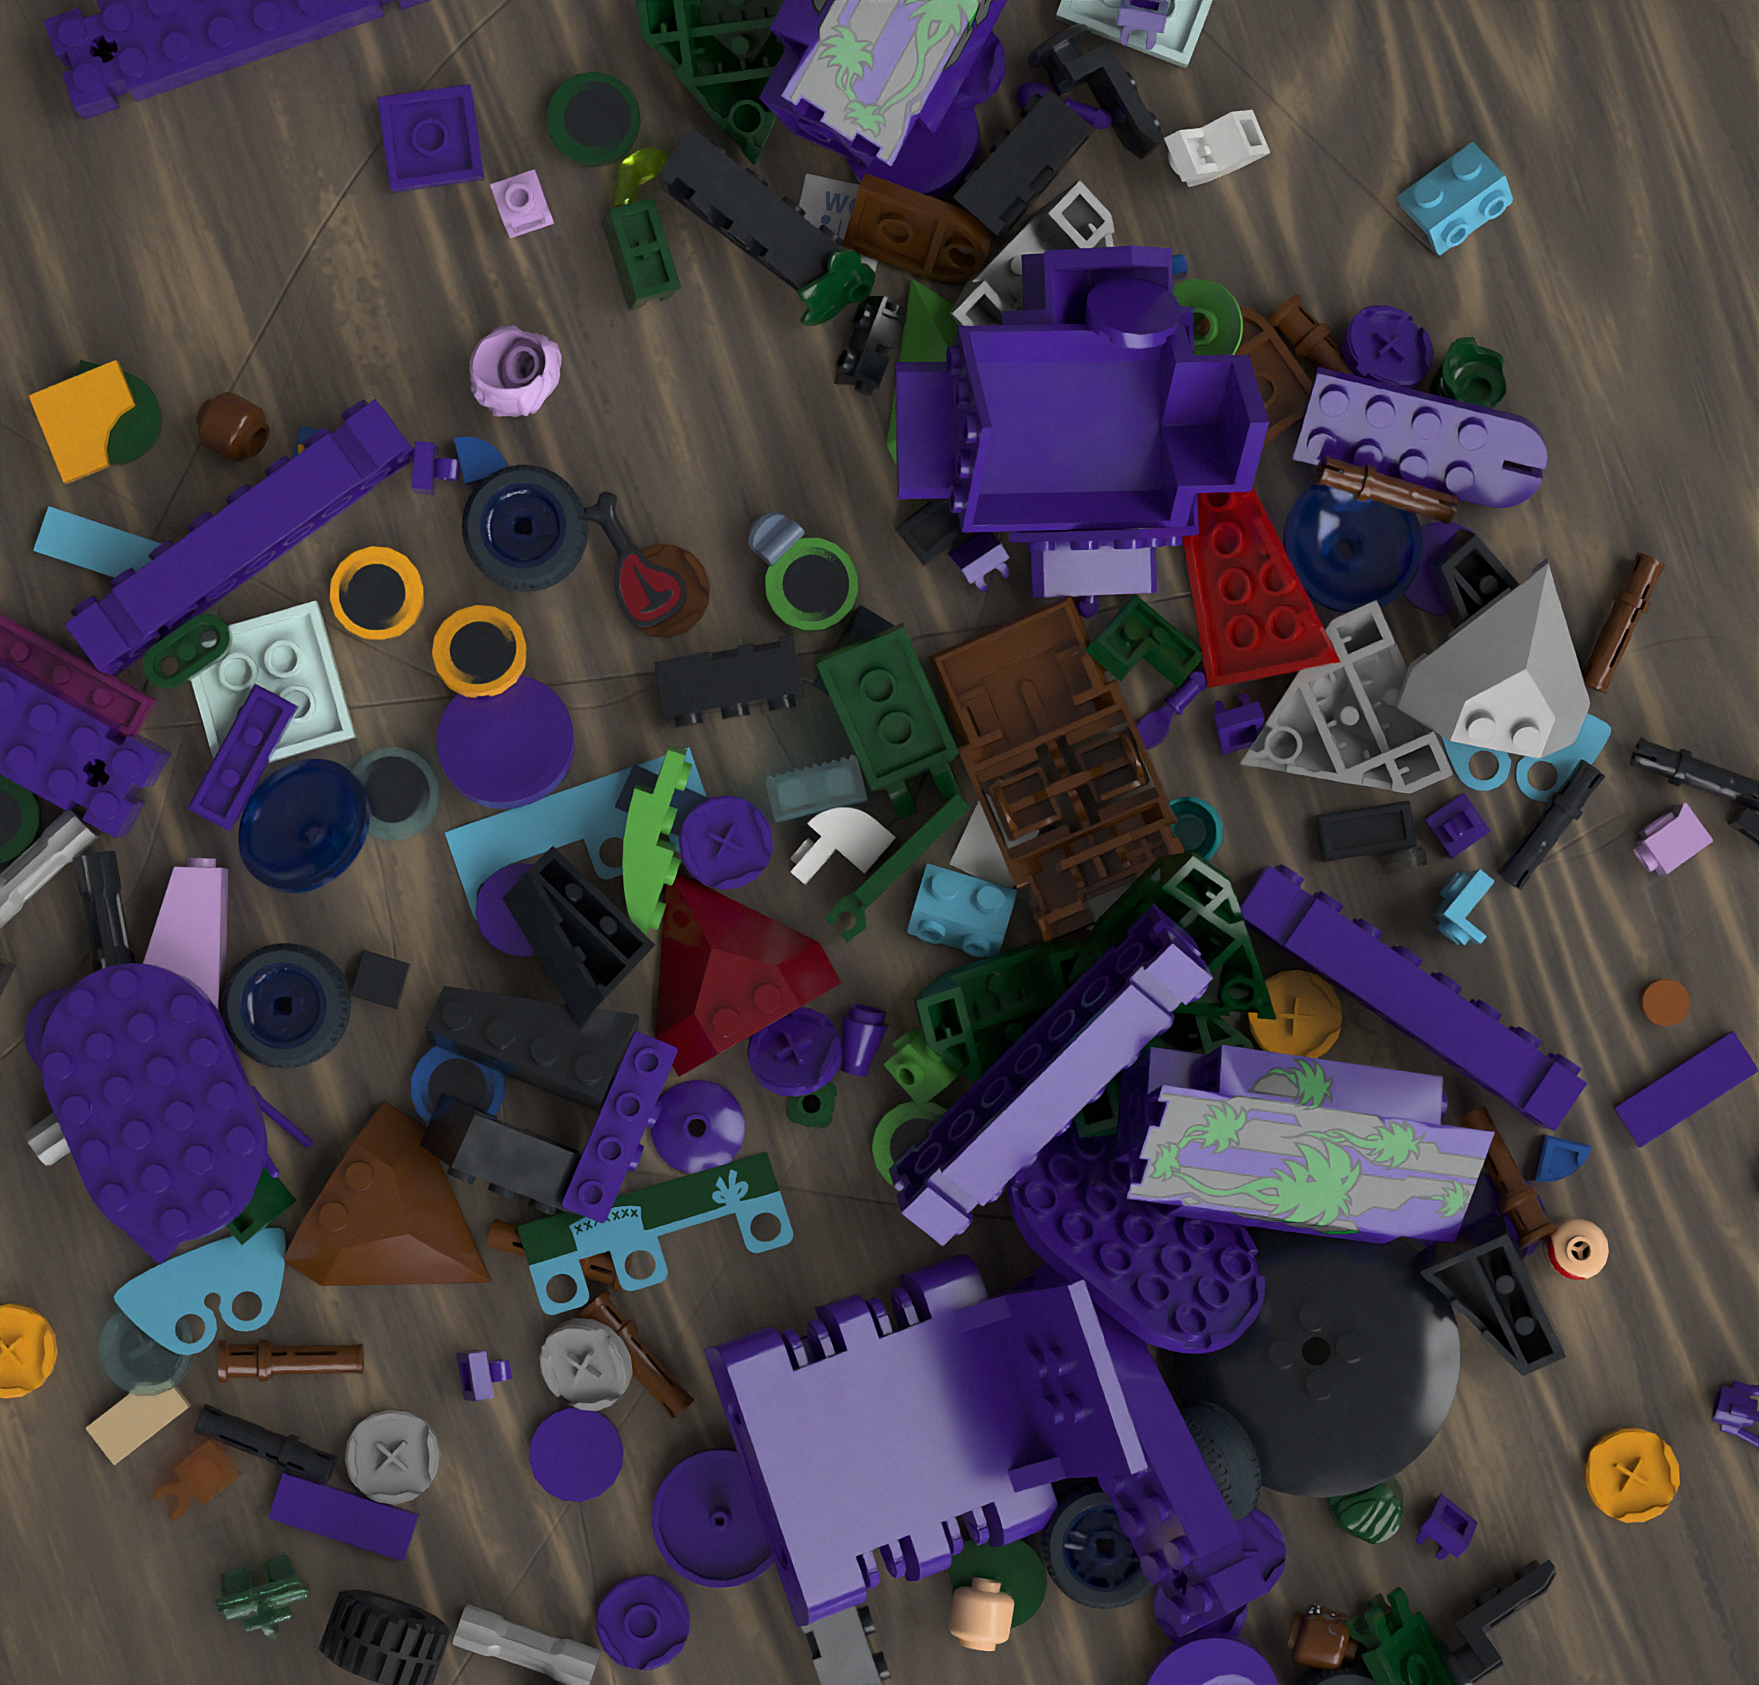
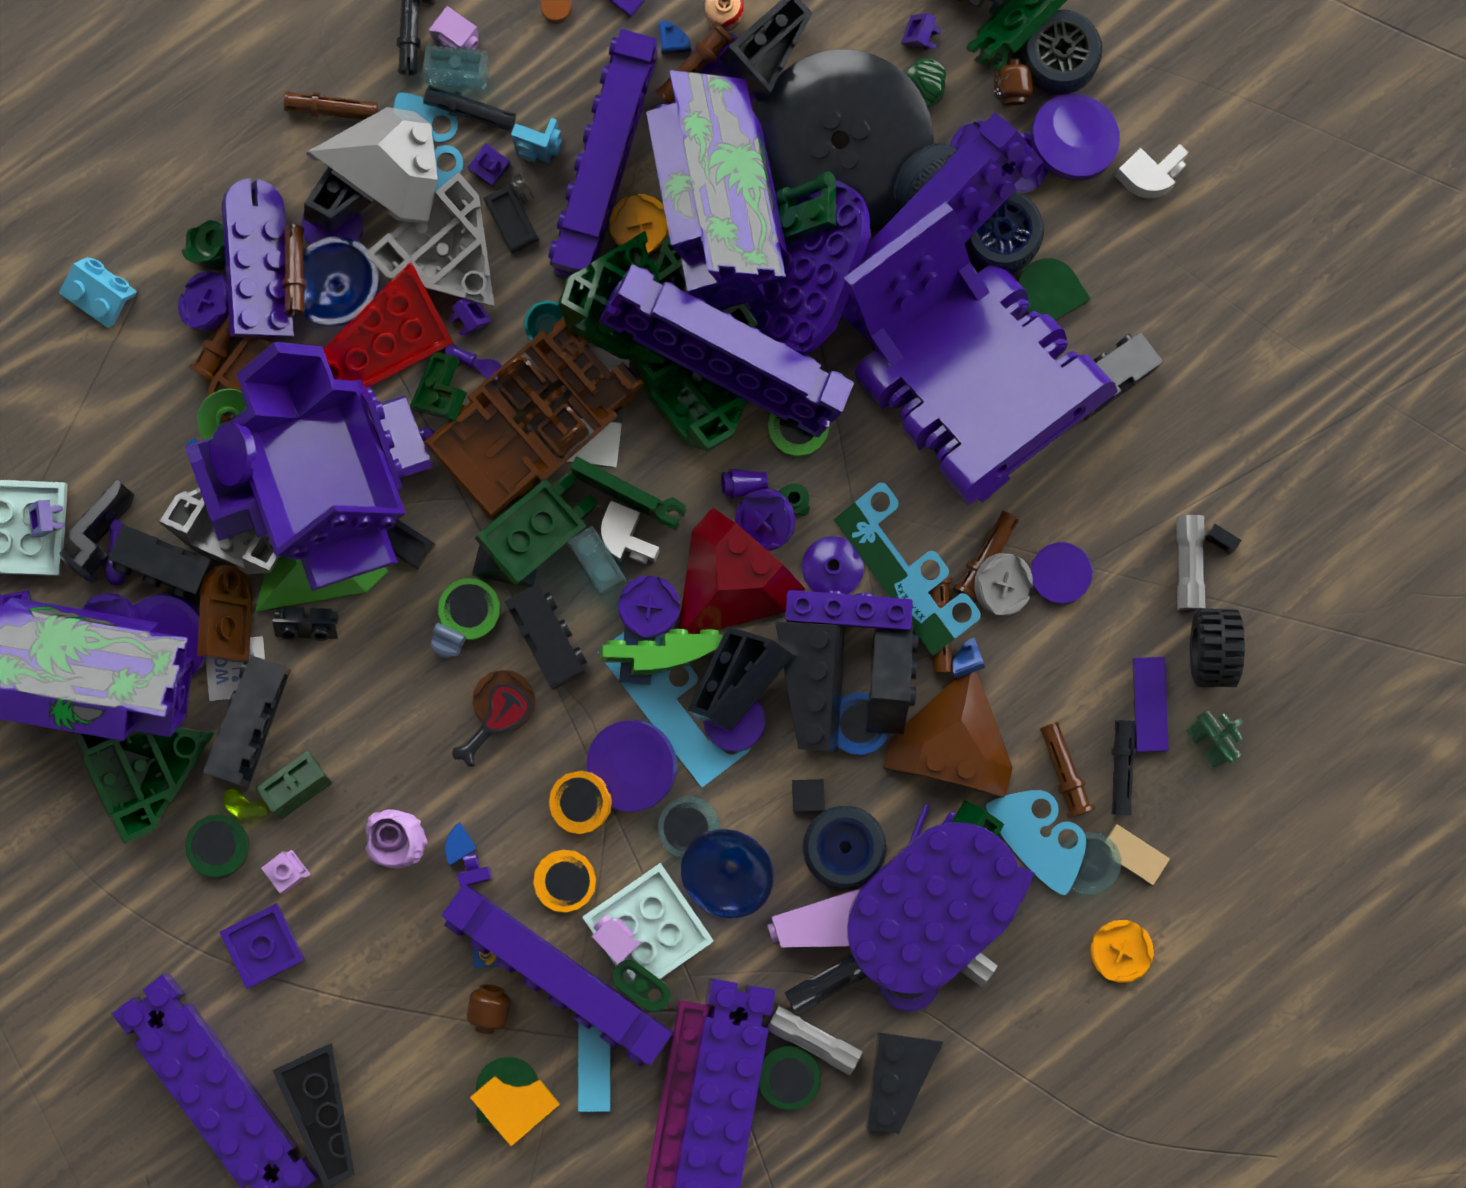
camera: 110 degrees left, 5 degrees down
(178, 142) = (317, 1107): none -> black wedge
(202, 1476) = (1156, 800): clear orange plate -> none
(242, 757) = (697, 928): dark purple tile -> none
(264, 636) = (615, 938): none -> lavender window
(392, 1456) = (1102, 686): light grey tile -> none
(479, 1373) = (1032, 648): dark purple tile -> none
(496, 1275) = (968, 659): none -> blue tile
(530, 496) = (486, 778): wheel -> none
(643, 1622) = (1149, 497): dark purple tile -> none
(710, 1521) = (1070, 474): dark purple piece -> none
(844, 284) = (270, 648): dark green plate -> none
(919, 1067) = (748, 439): bright green brick -> none
(961, 912) = (643, 447): medium azure bracket -> none
(978, 557) = (418, 509): dark purple tile -> none
(981, 1615) = (1071, 289): light nougat head -> none
(1212, 1268) = (810, 216): none -> dark green plate
(1216, 148) = (111, 446): white brick -> none
(1616, 824) = (456, 67): none -> clear light blue brick

